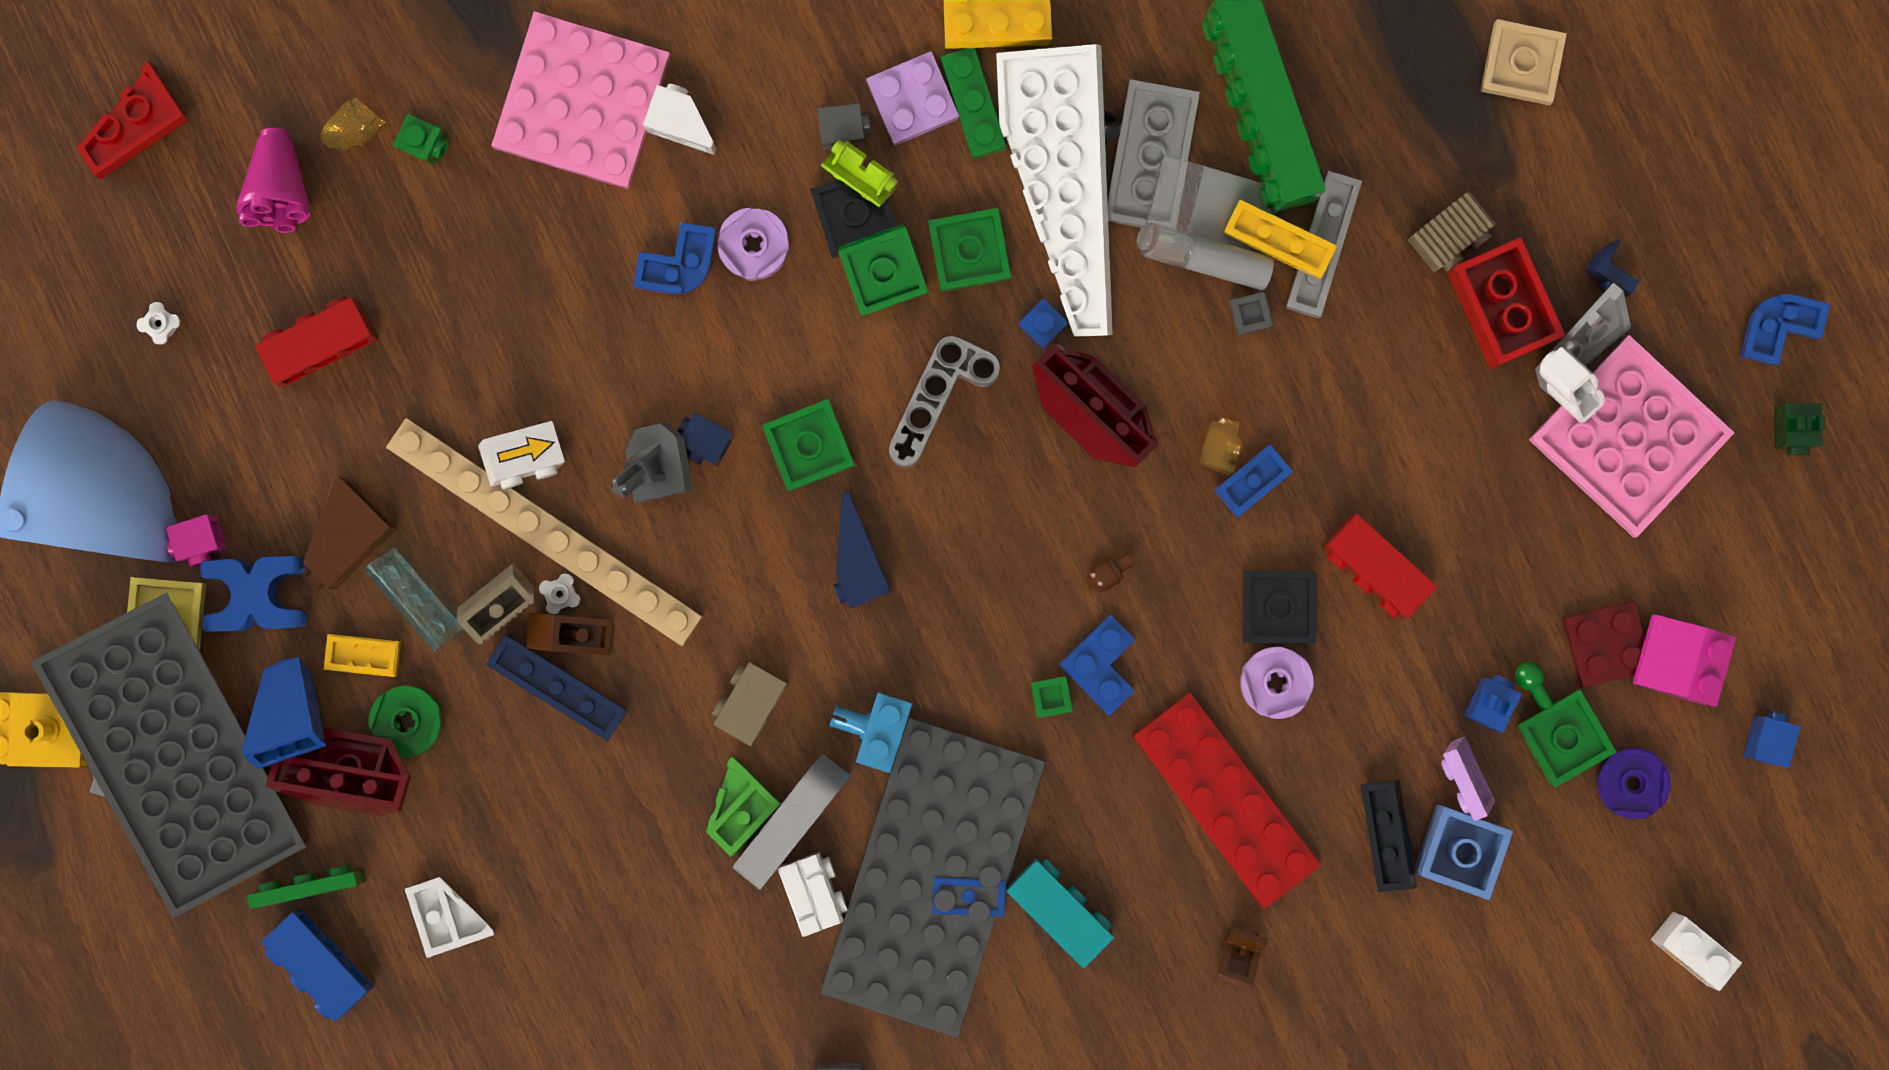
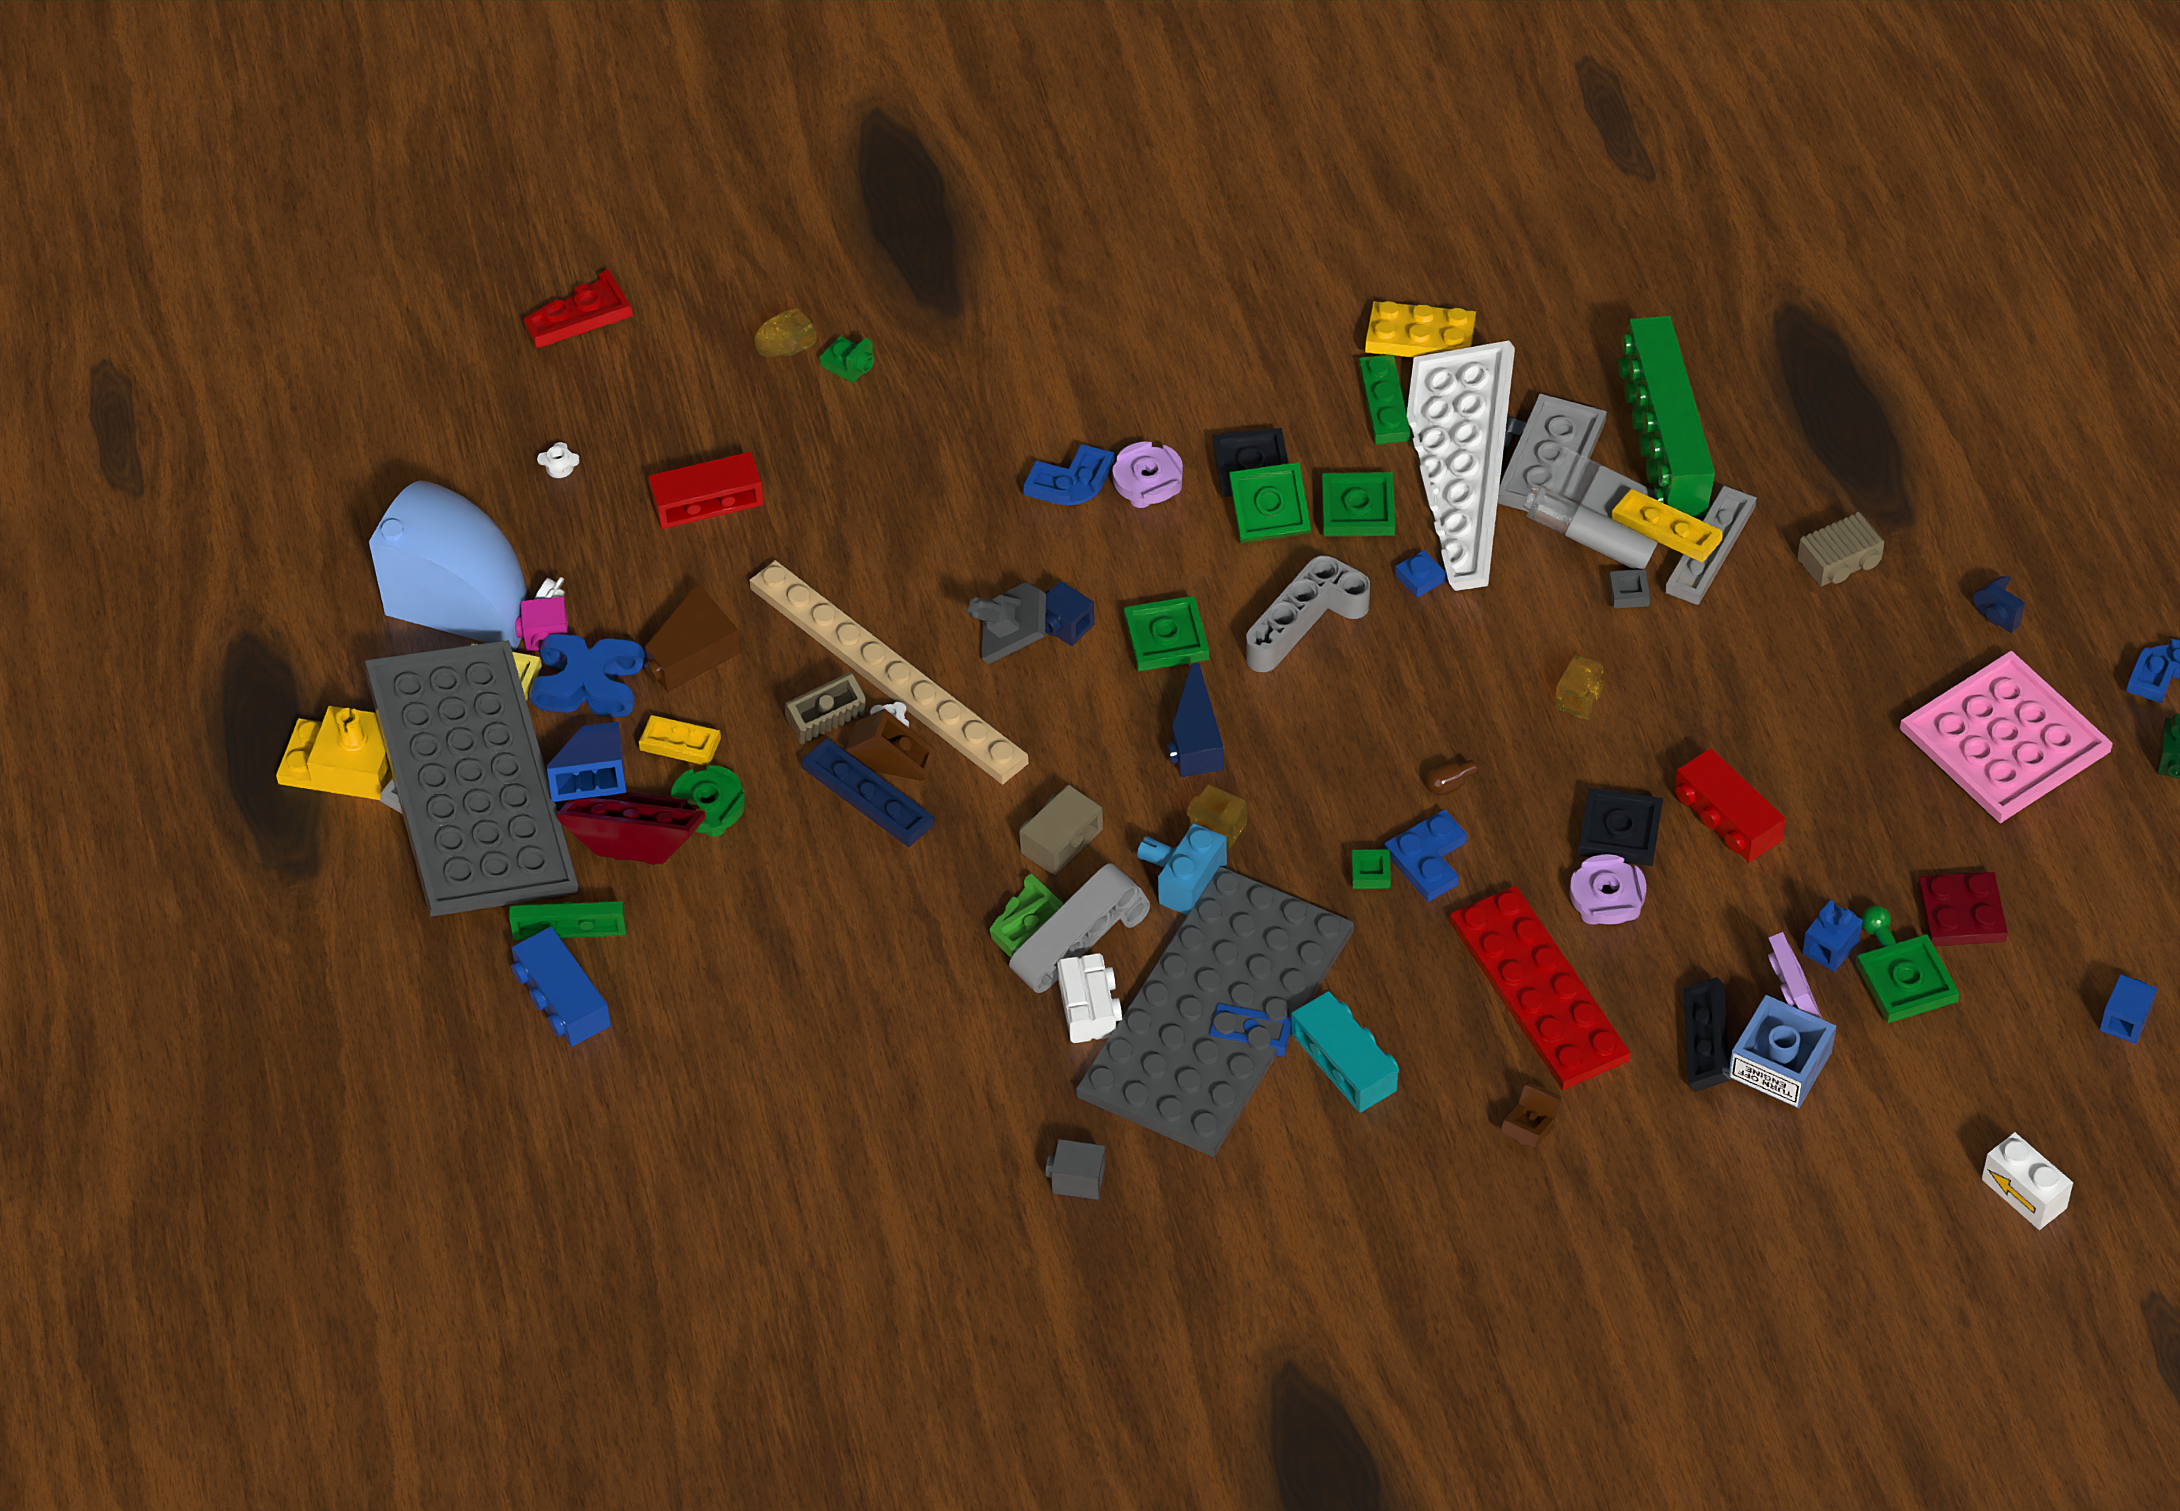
camera: 10 degrees right, 35 degrees down
(192, 502) = (550, 589): none -> white plate
(273, 185) = (699, 369): dark pink cone -> none
(414, 599) = (744, 701): clear light blue plate -> none
(444, 917) = (701, 968): white wing -> none
(521, 454) = (882, 594): white brick -> none
(580, 100) = (1007, 350): bright pink plate -> none
(677, 119) = (1096, 371): white slope -> none
(843, 123) = (1254, 395): dark grey brick -> none
(873, 182) = (1274, 427): lime hinge -> none
(909, 667) = (1219, 813): none -> clear yellow brick
(912, 98) = (1326, 388): lavender plate -> none
(1093, 406) = (1451, 630): dark red wedge -> none
(1253, 481) = (1610, 720): blue plate -> none
(1505, 303) = (1887, 606): red brick -> none
(1523, 62) = (1930, 432): tan plate -> none
(1571, 384) = (1943, 661): white brick -> none
(1596, 329) = (1966, 645): light grey wing -> none
(1651, 787) = (1977, 1013): dark purple plate -> none
(1684, 660) = (2039, 920): dark pink slope -> none

